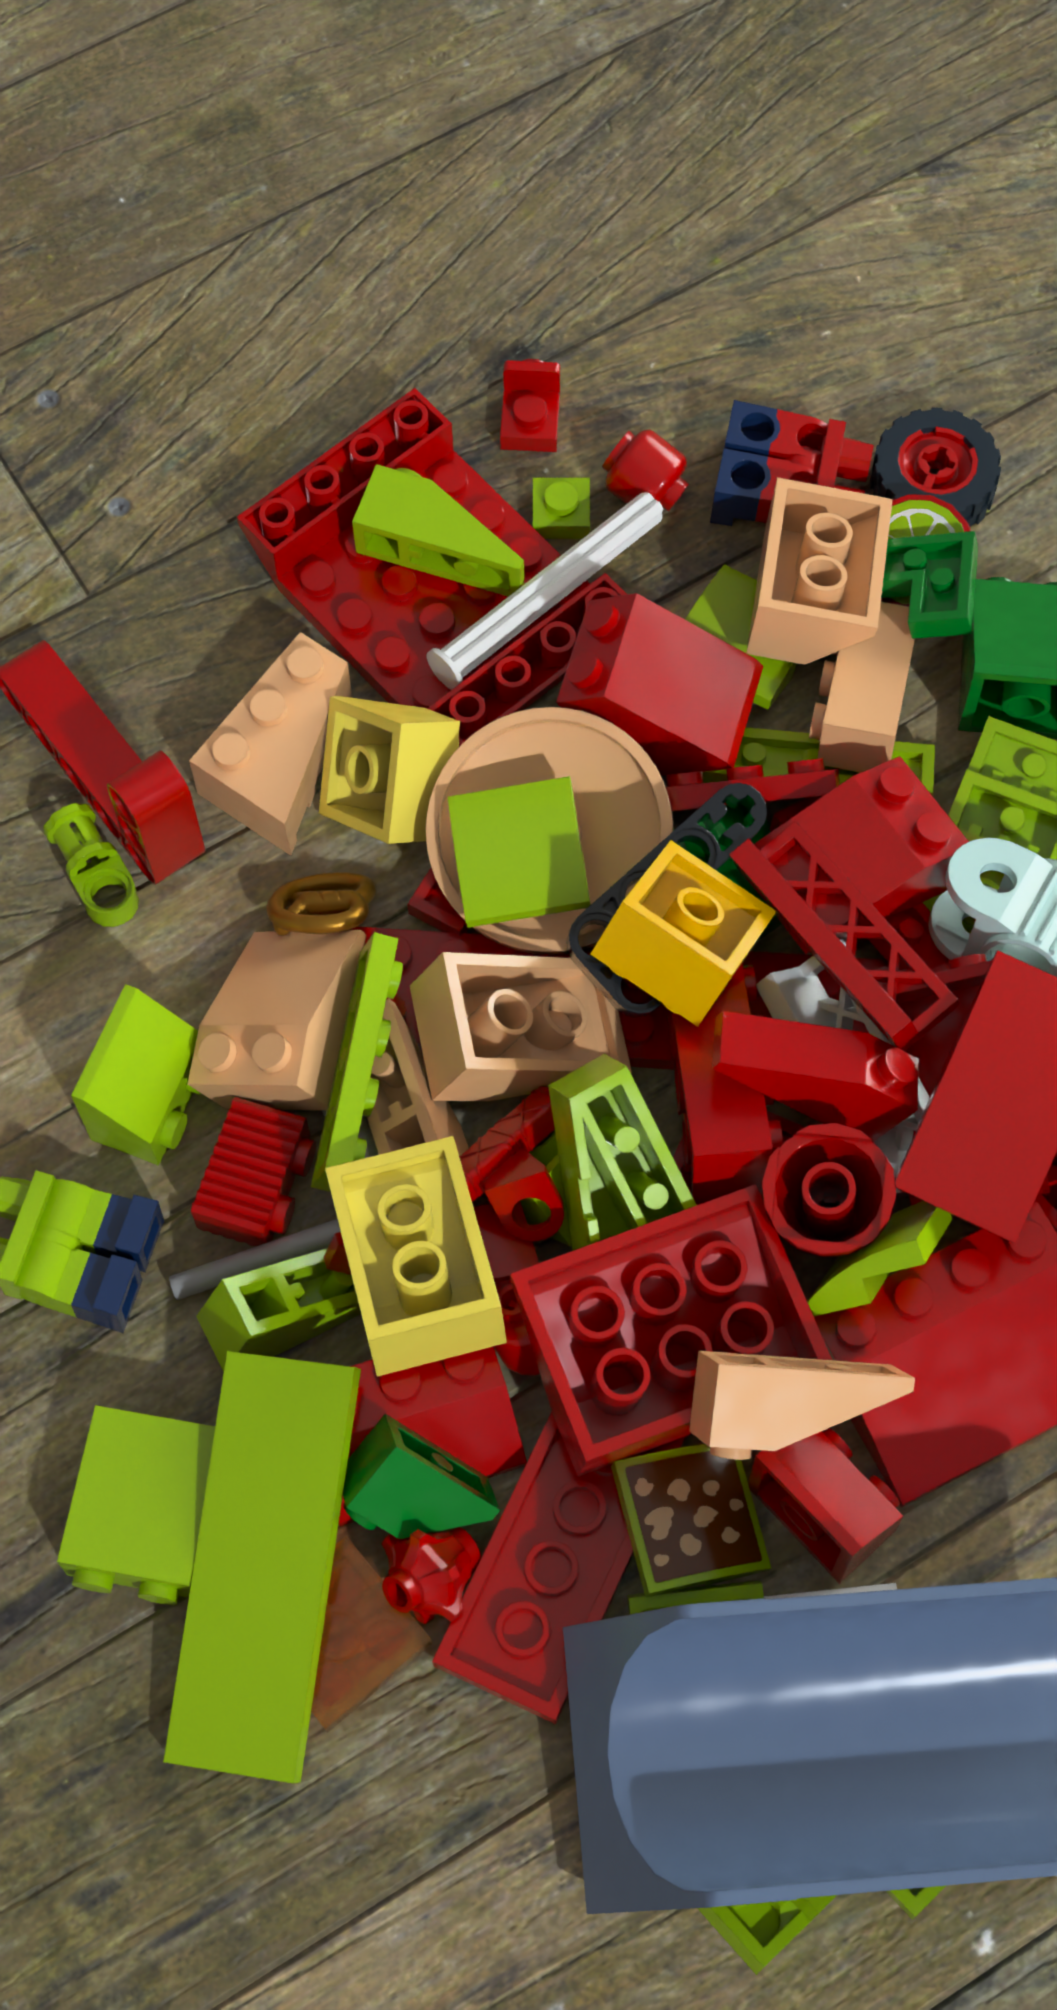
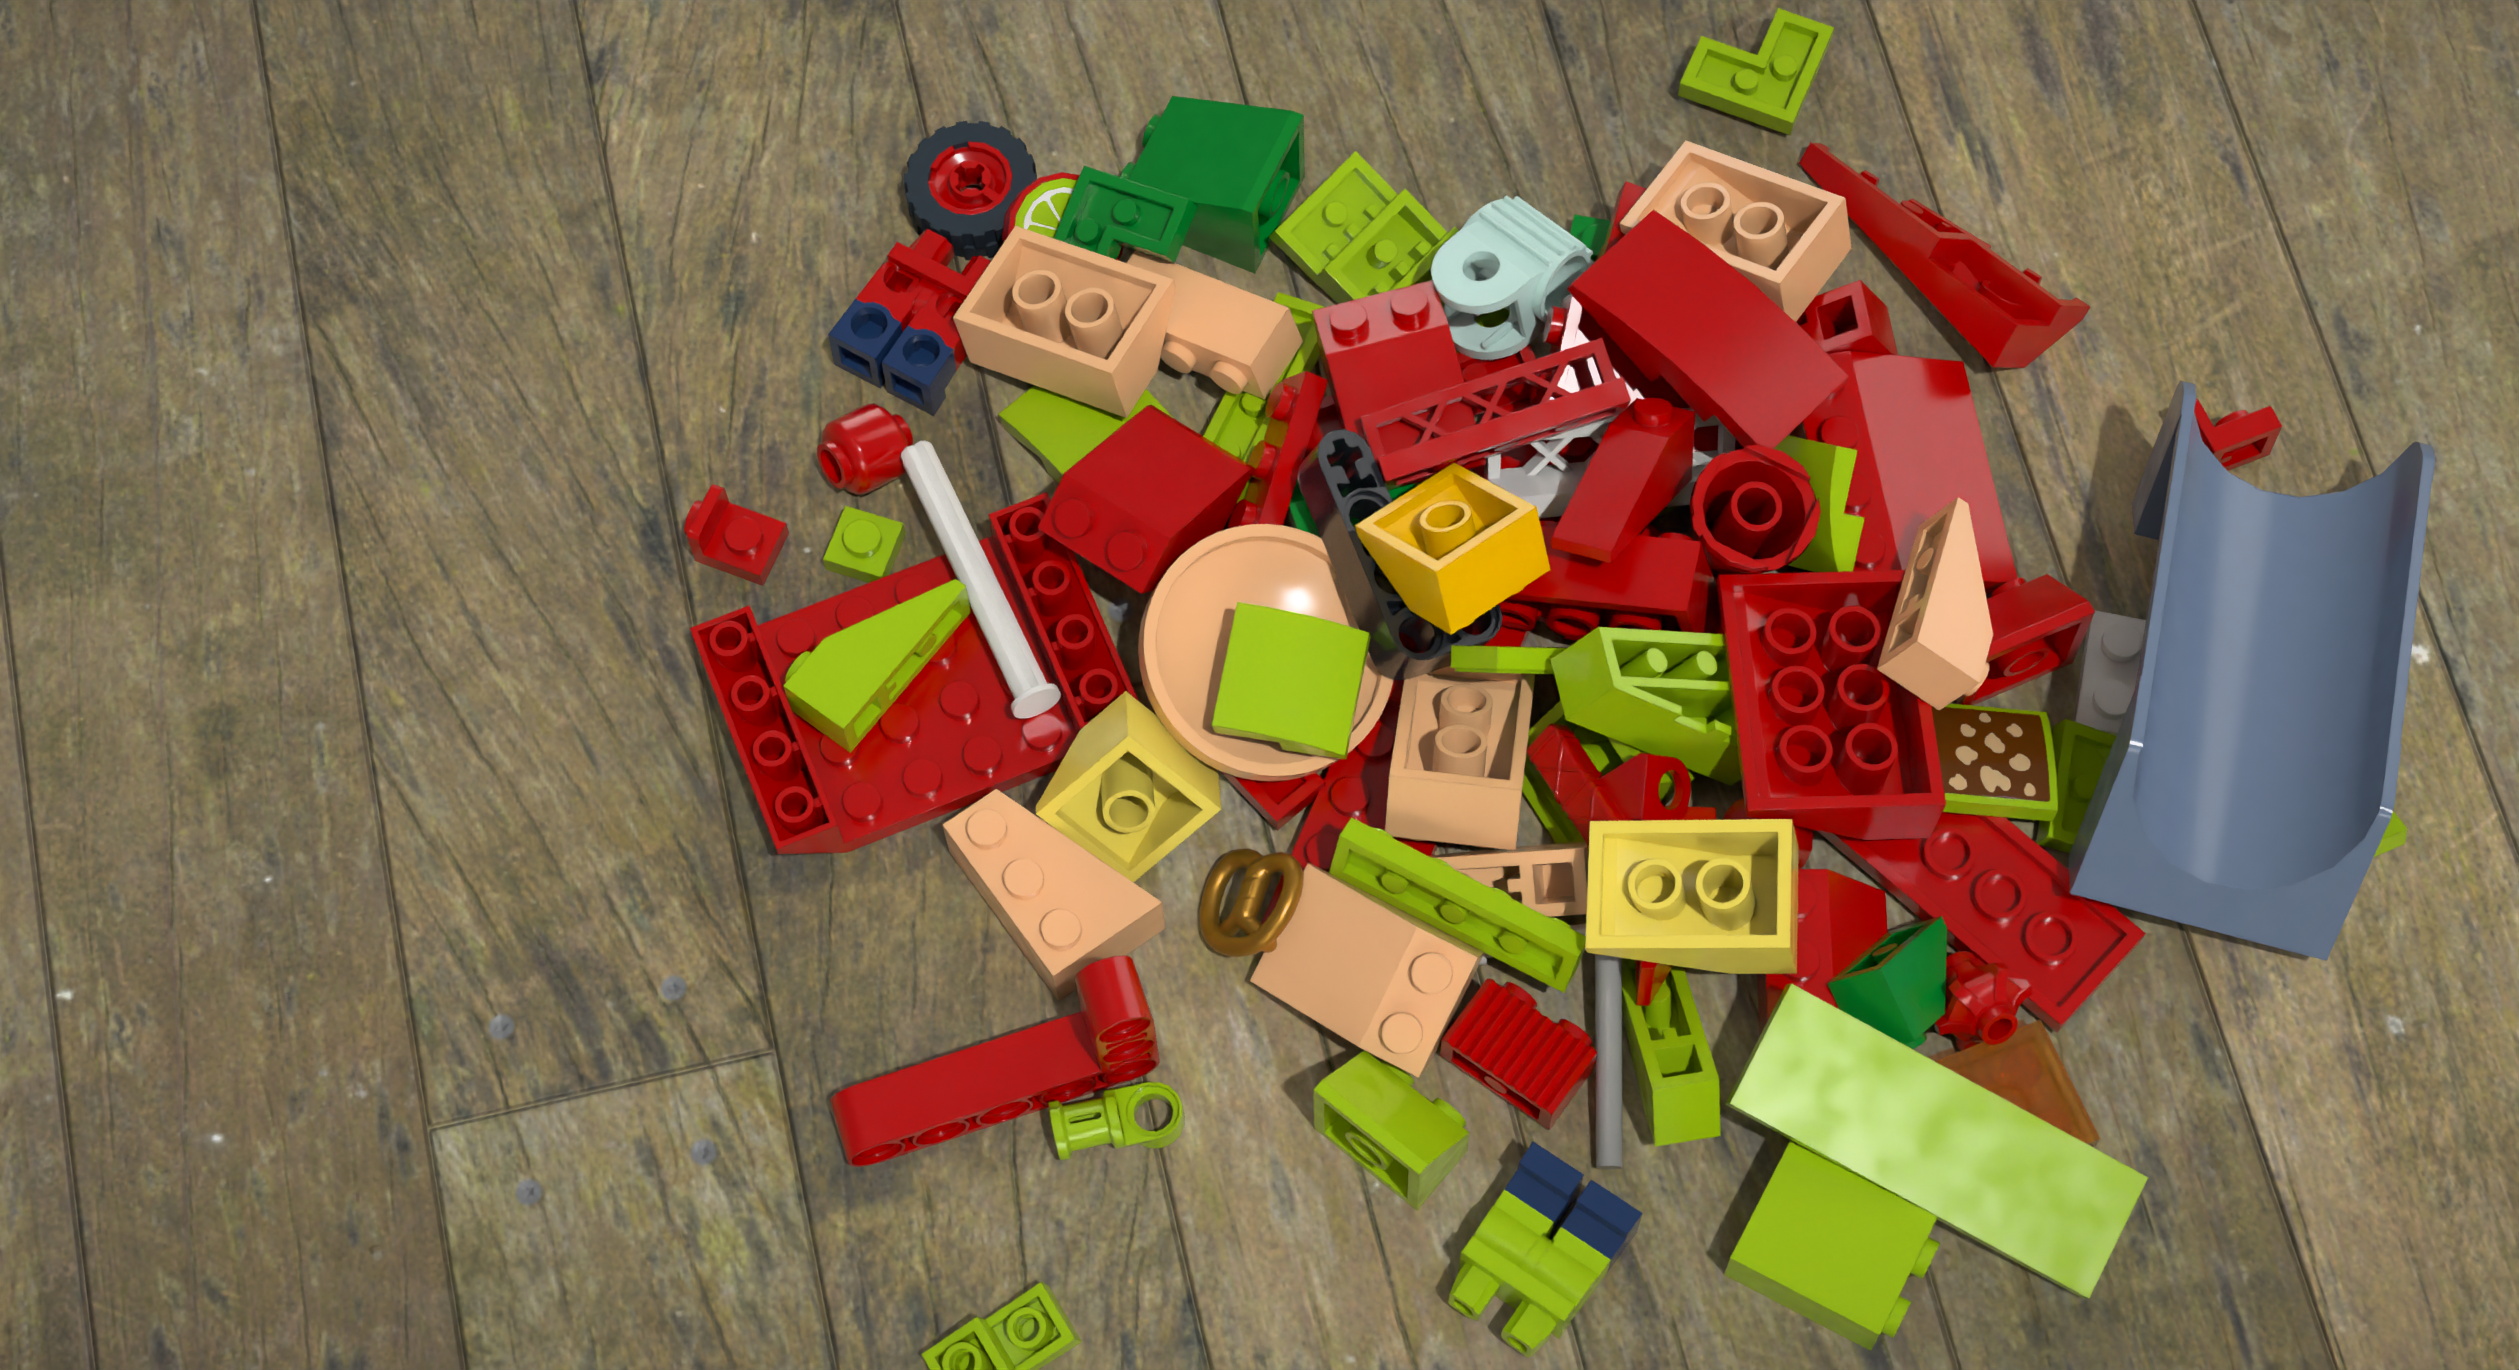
camera: 70 degrees left, 0 degrees up
(610, 1035) = (1503, 659): none -> lime tile

